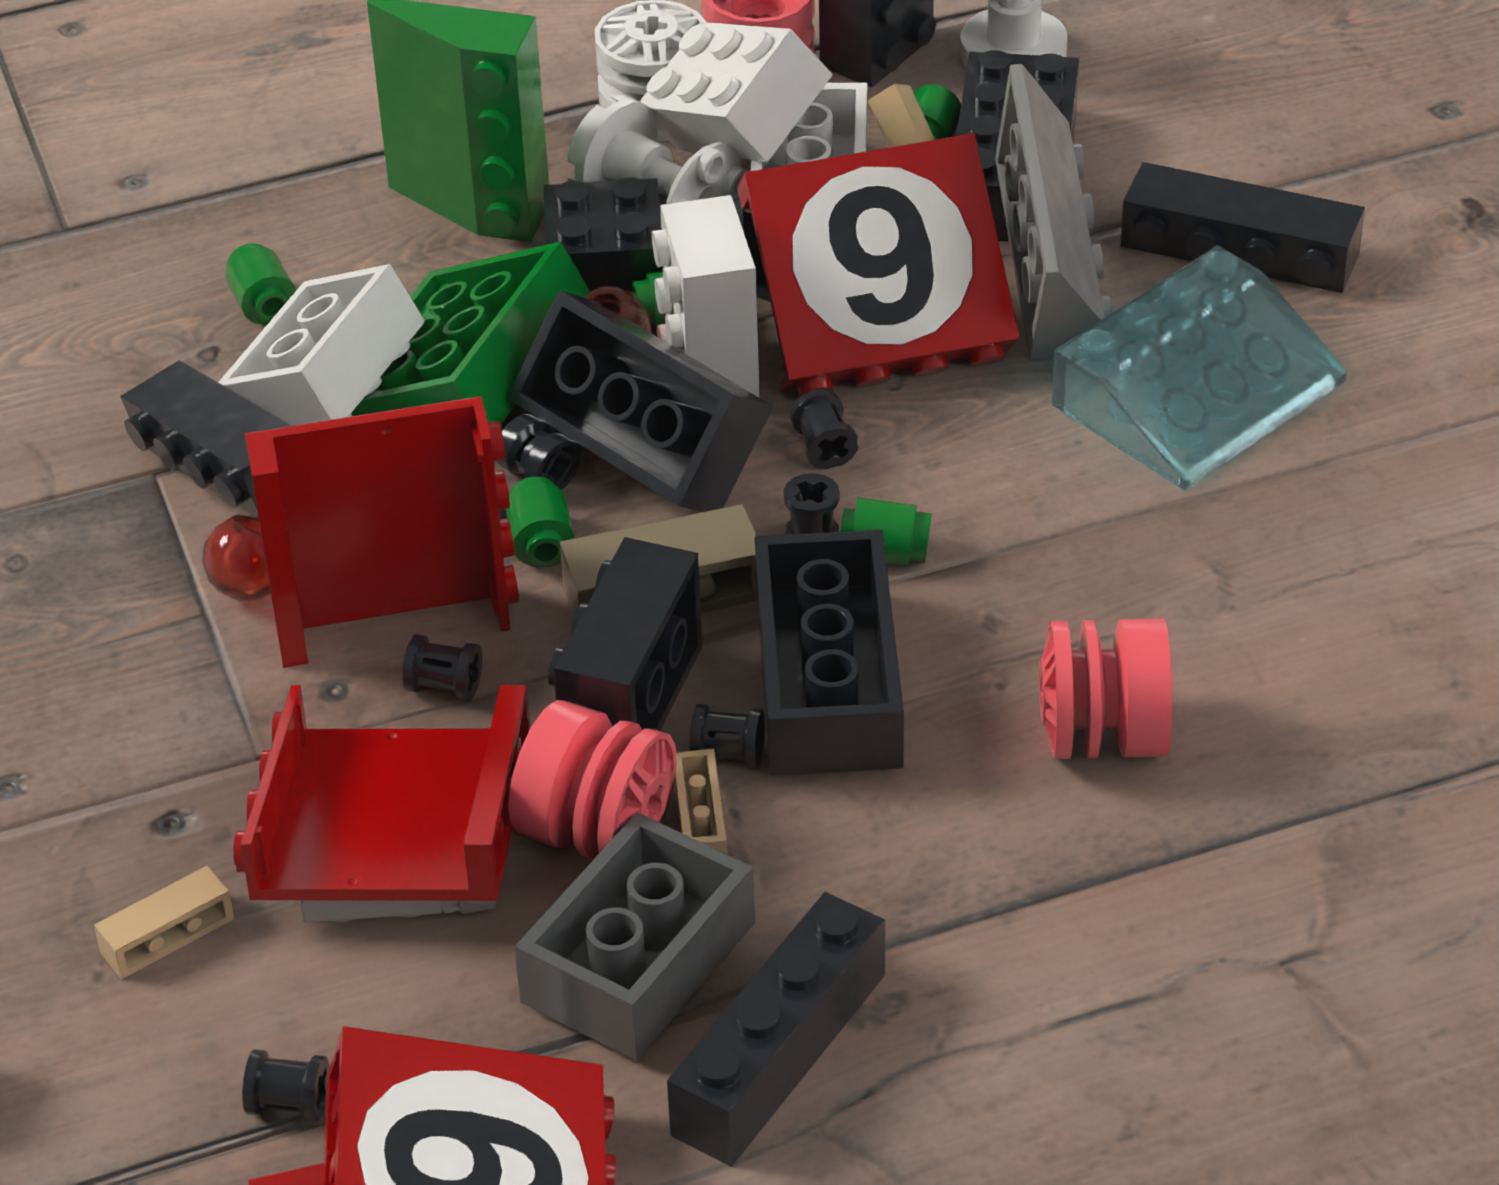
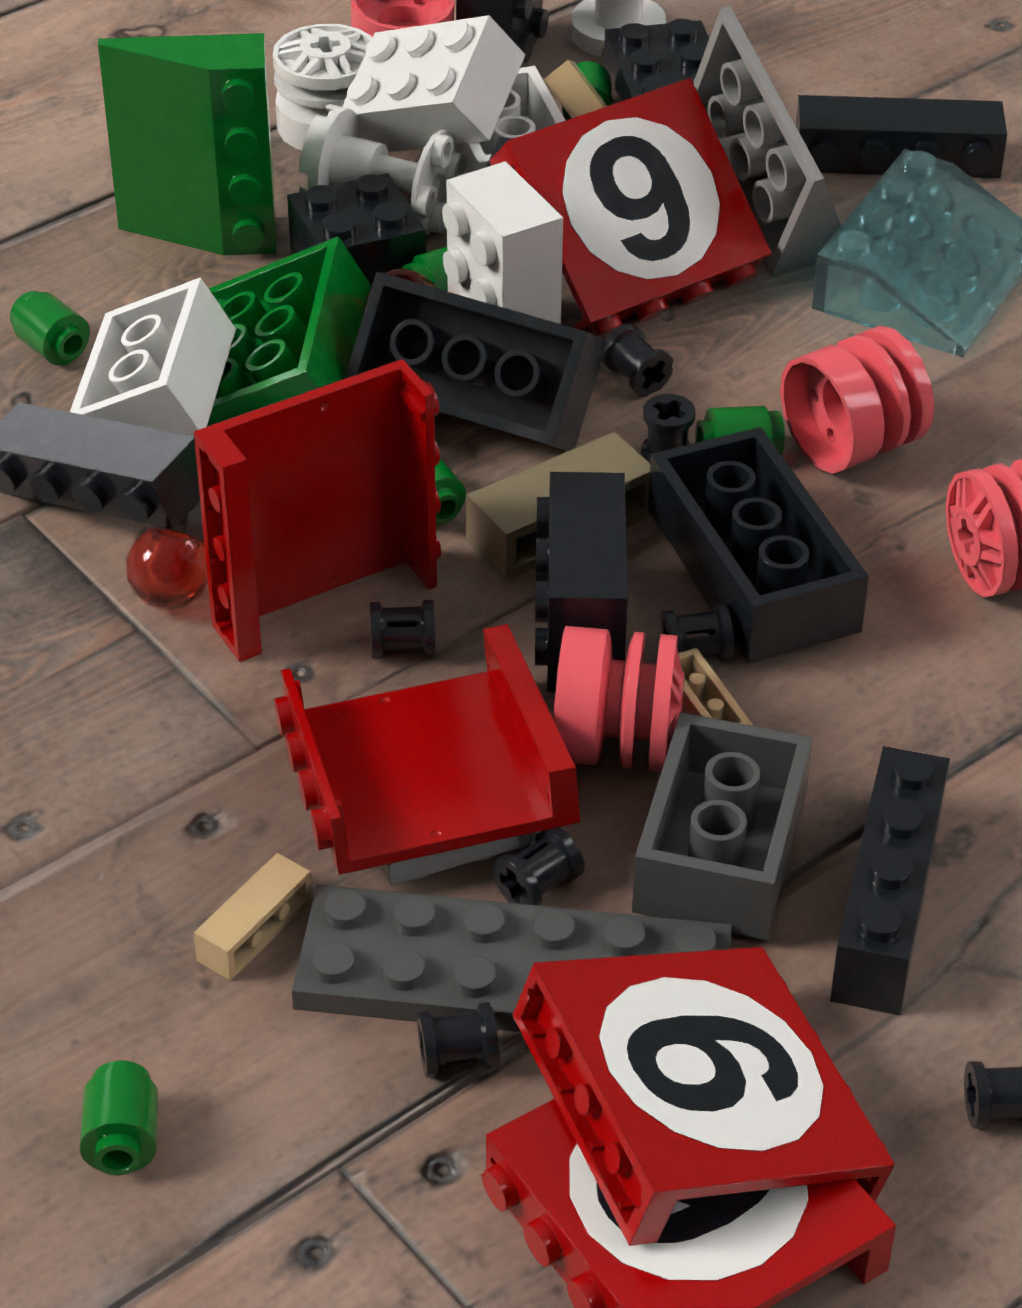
camera: 20 degrees left, 0 degrees up
(295, 990) = (447, 954): none -> dark grey plate
(447, 938) = (538, 867): none -> black bush
(1023, 515) = (857, 399): none -> coral wheel

